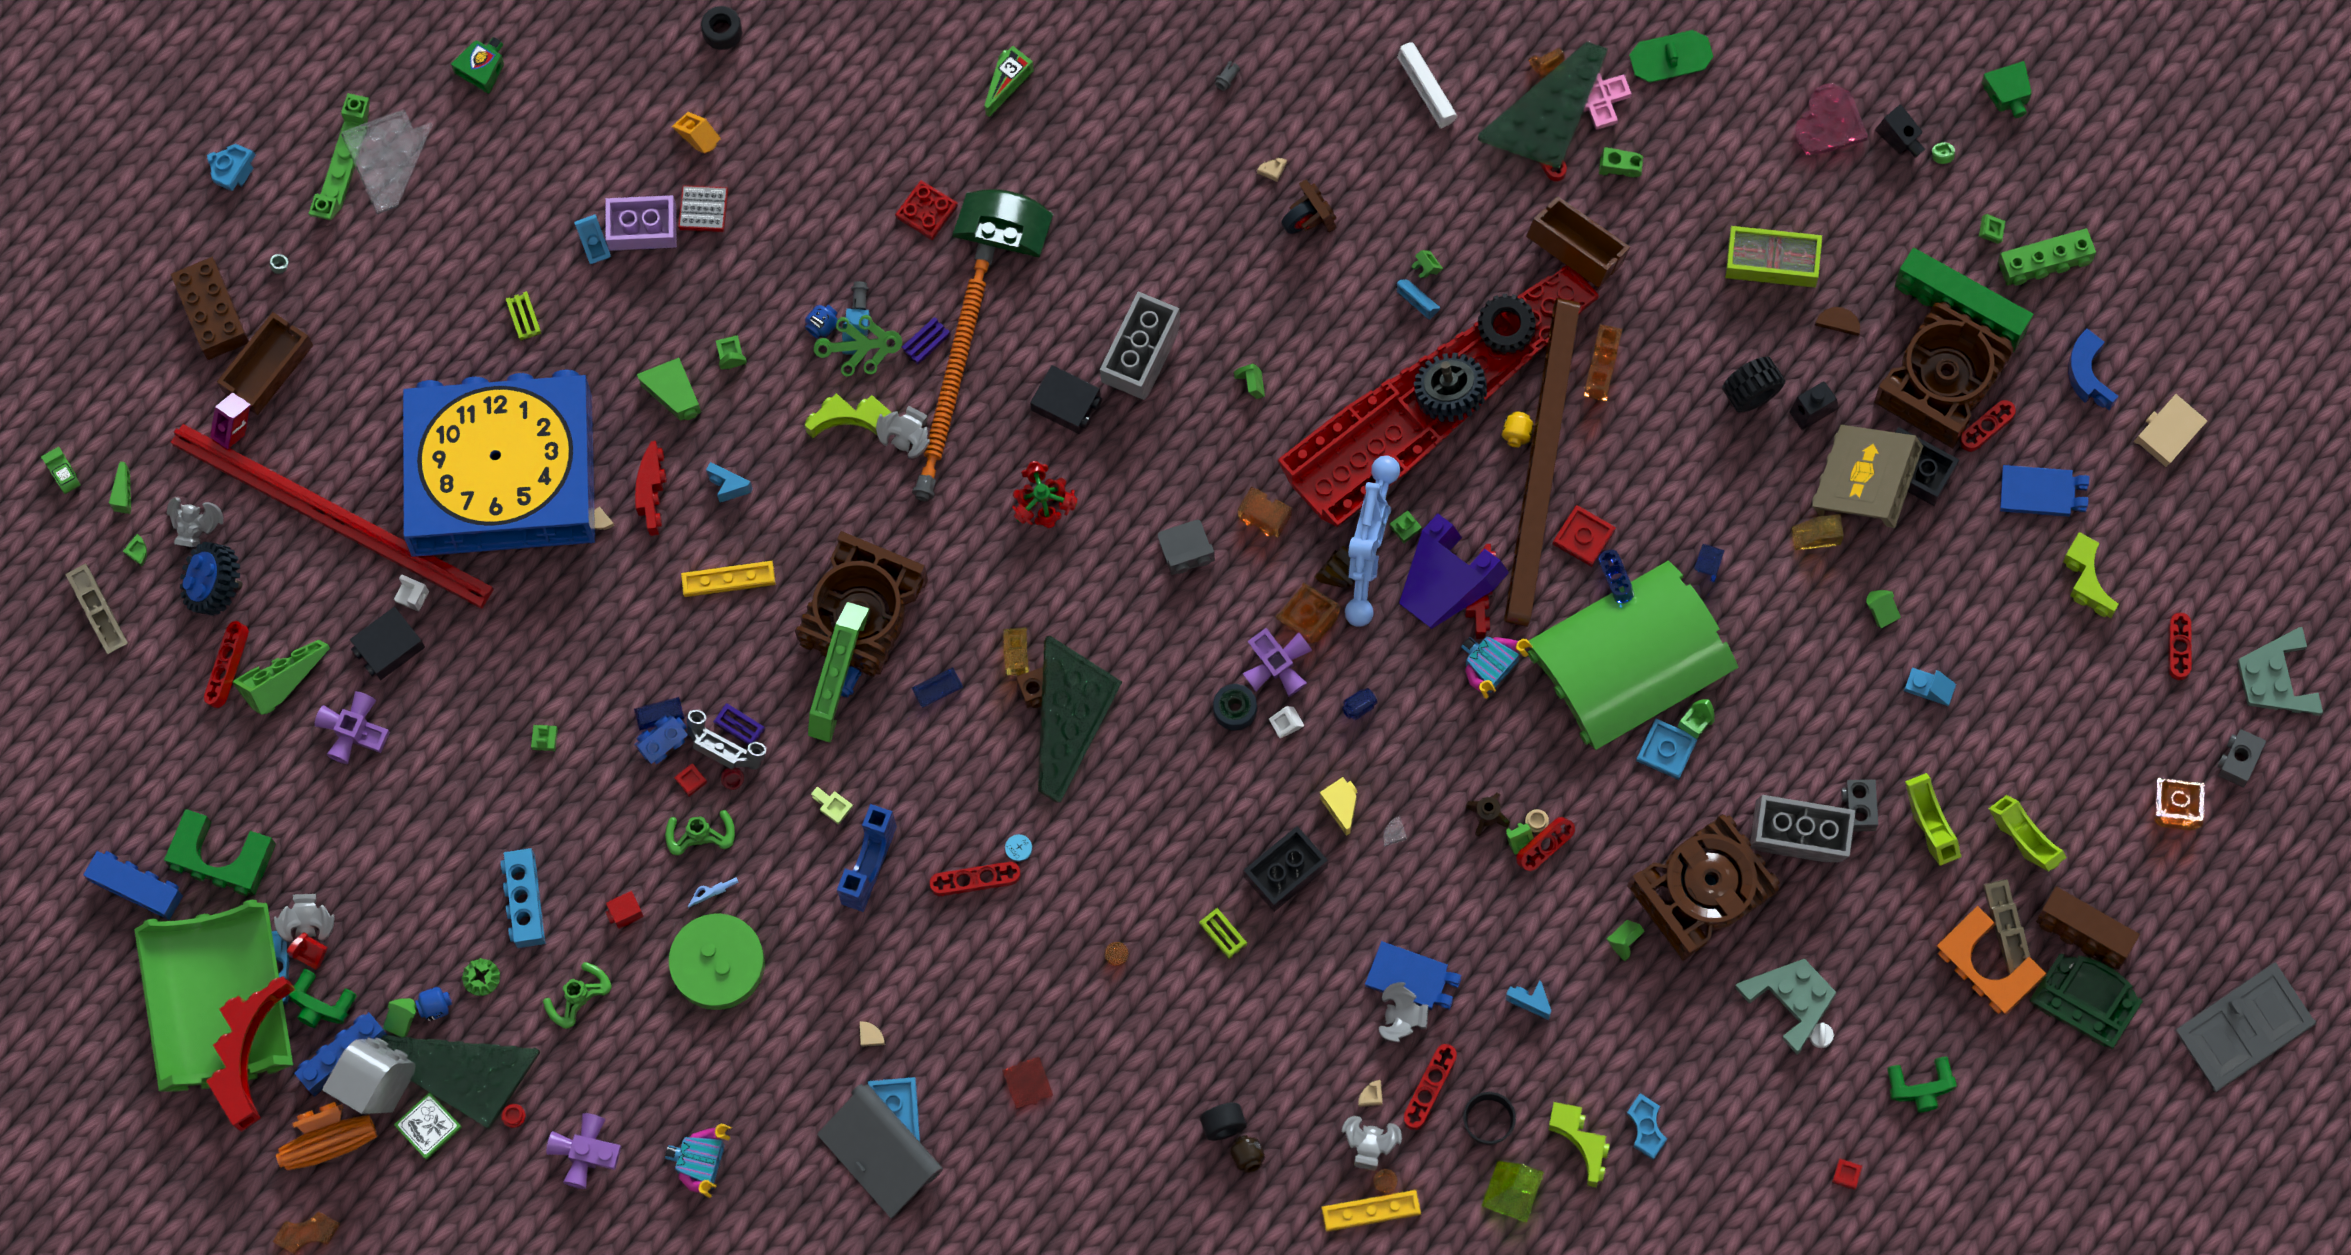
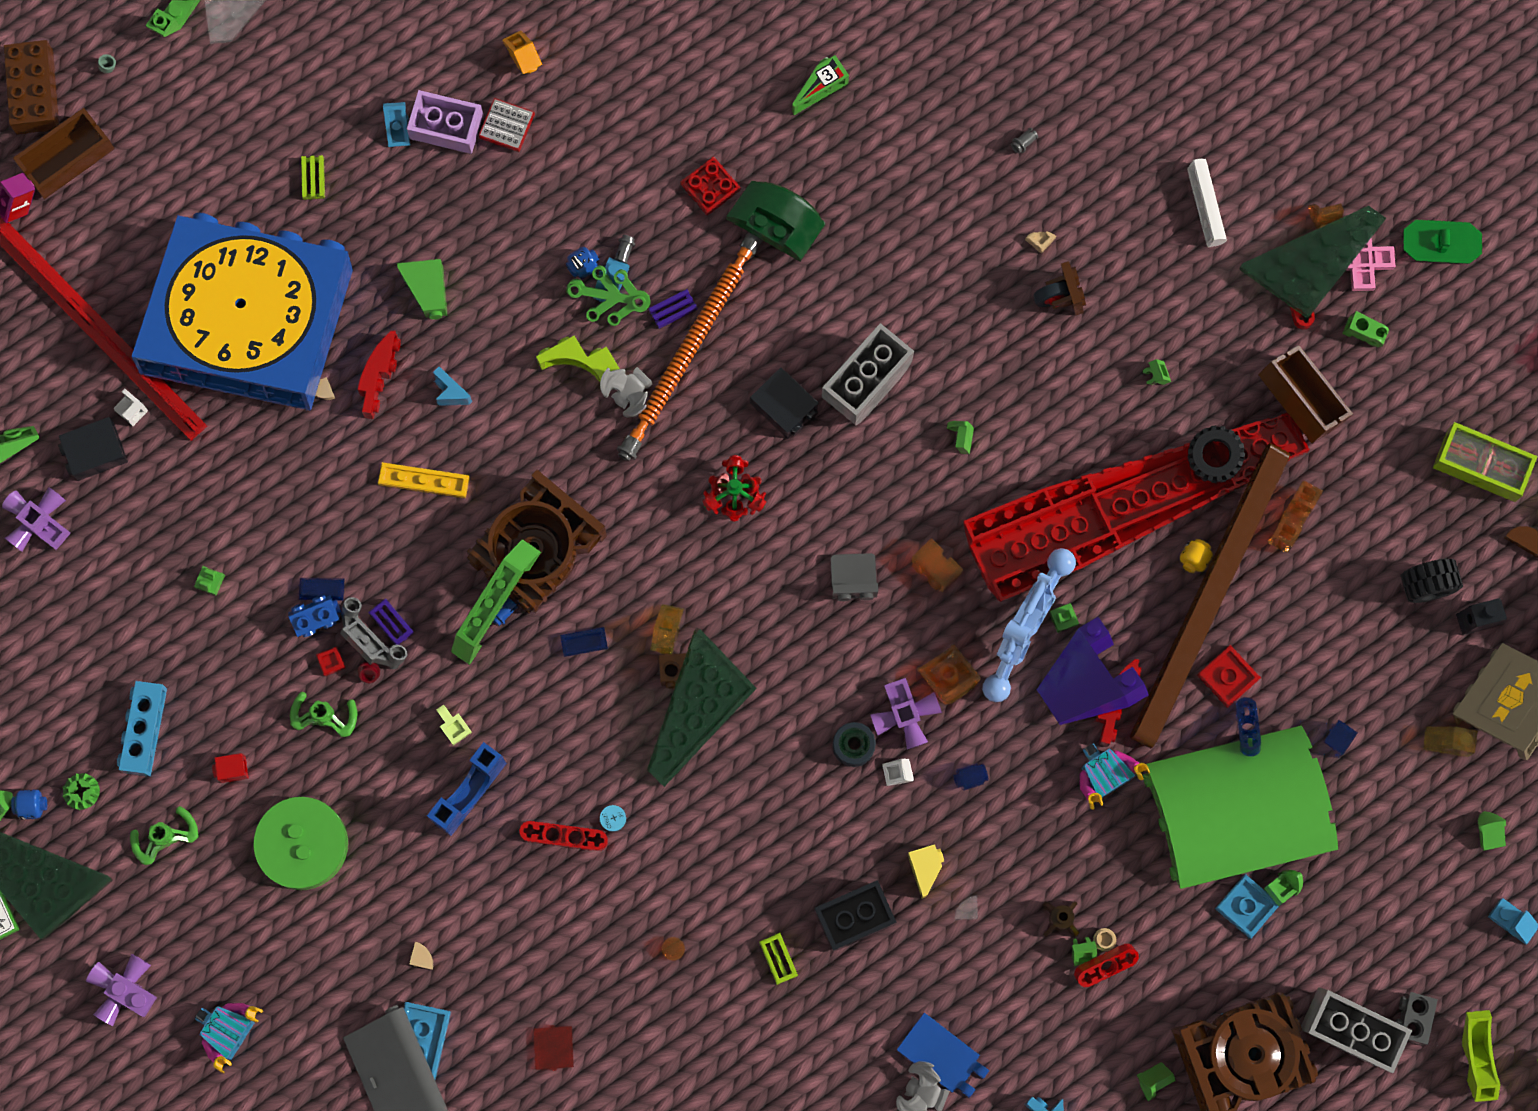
camera: 10 degrees right, 5 degrees up
(513, 1116) = (69, 934): red plate -> none
(710, 892) = (322, 773): light blue hand -> none
(730, 353) = (490, 267): bright green tile -> none
(1336, 570) = (987, 640): dark brown brick -> none
(1417, 298) = (1139, 403): dark azure slope -> none
(1450, 387) = (1145, 499): wheel -> none

